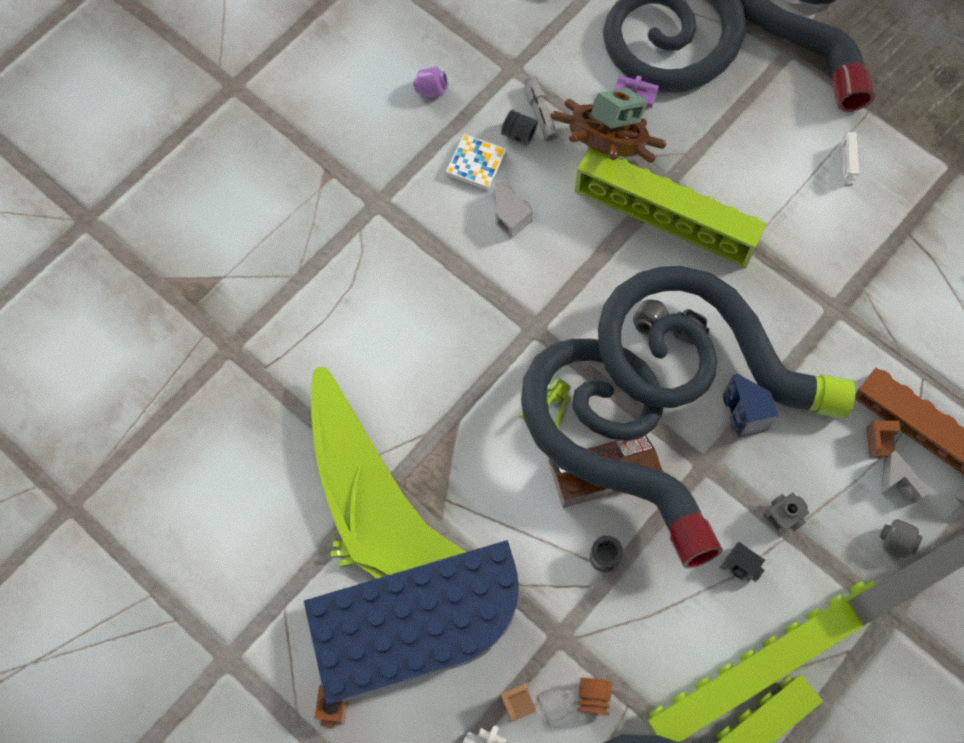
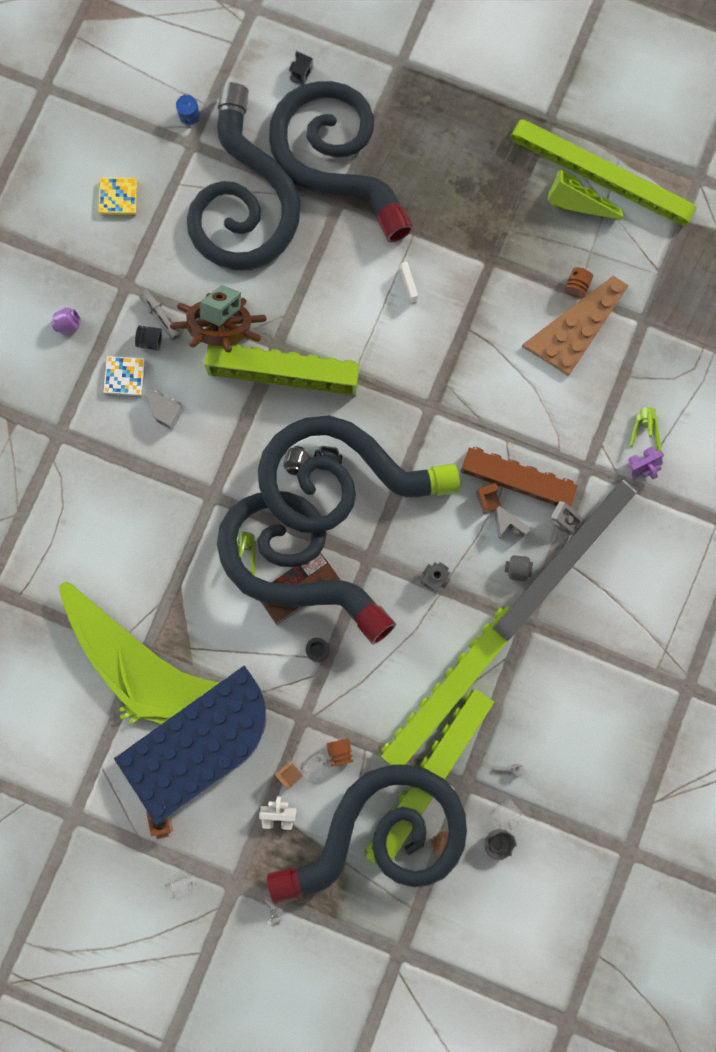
camera: 25 degrees left, 10 degrees up
(643, 89) = (229, 277): medium lavender hips -> none
(744, 563) = (415, 623): black brick -> none
(749, 405) = (388, 508): dark blue slope -> none

